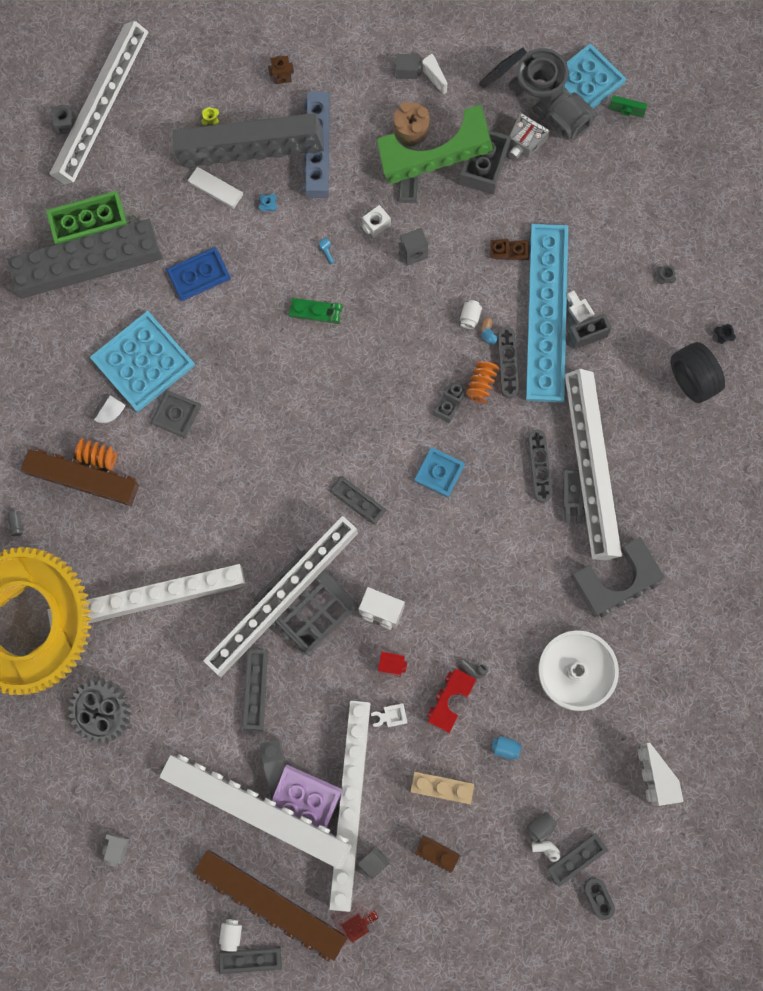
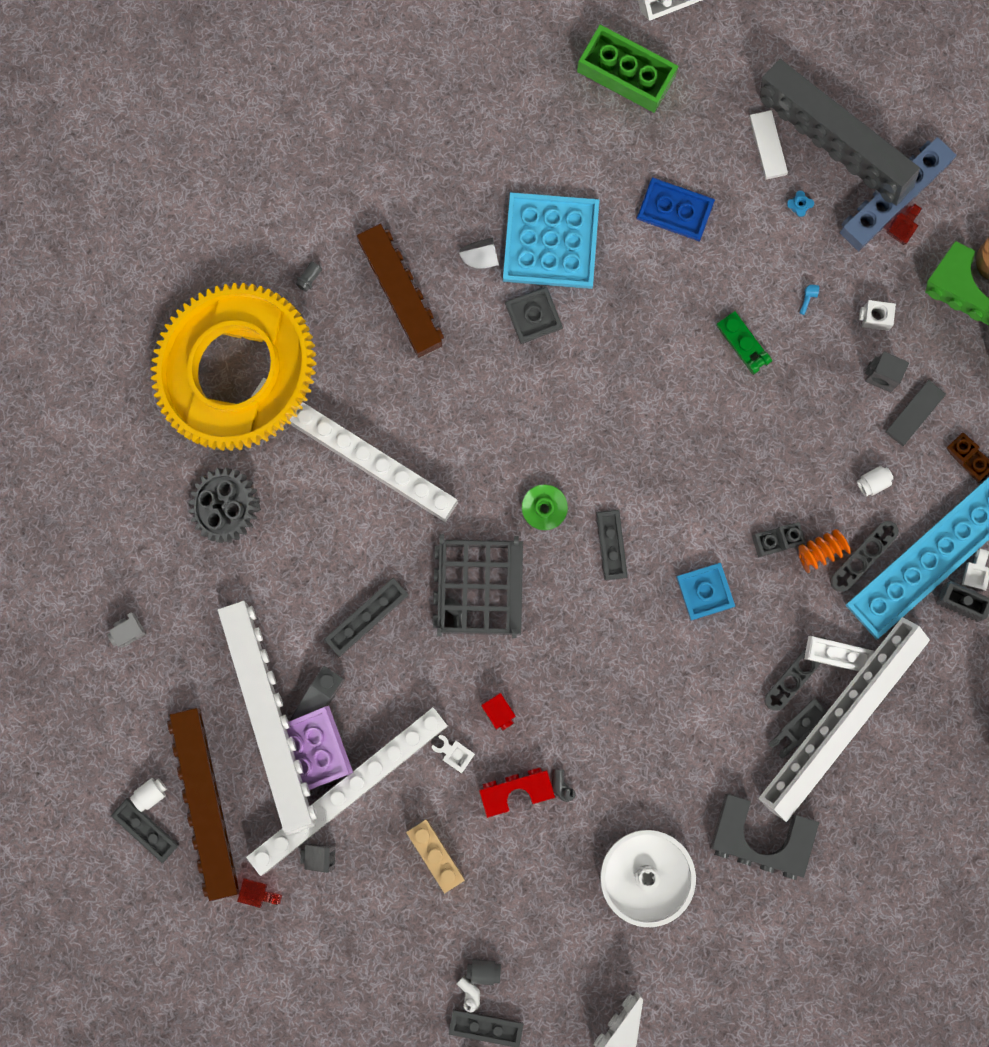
camera: 40 degrees right, 5 degrees up
(84, 258) = (591, 99): dark grey brick -> none
(95, 455) = (431, 284): orange piece -> none
(210, 112) = (830, 68): neon yellow plate -> none
(281, 69) = (935, 92): reddish brown brick -> none
(281, 596) = (463, 563): white brick -> none
(294, 508) = (548, 496): none -> bright green dish
(338, 158) = (903, 225): none -> clear red plate
(381, 608) = (536, 656): white brick -> none
(408, 190) = (936, 315): dark grey tile -> none
(437, 854) = (377, 904): reddish brown brick -> none
(453, 255) = (915, 413): none -> dark grey tile
(486, 333) = (872, 511): dark azure arm -> none
(506, 748) = (521, 878): dark azure brick -> none
(550, 432) = (836, 653): none -> white tile

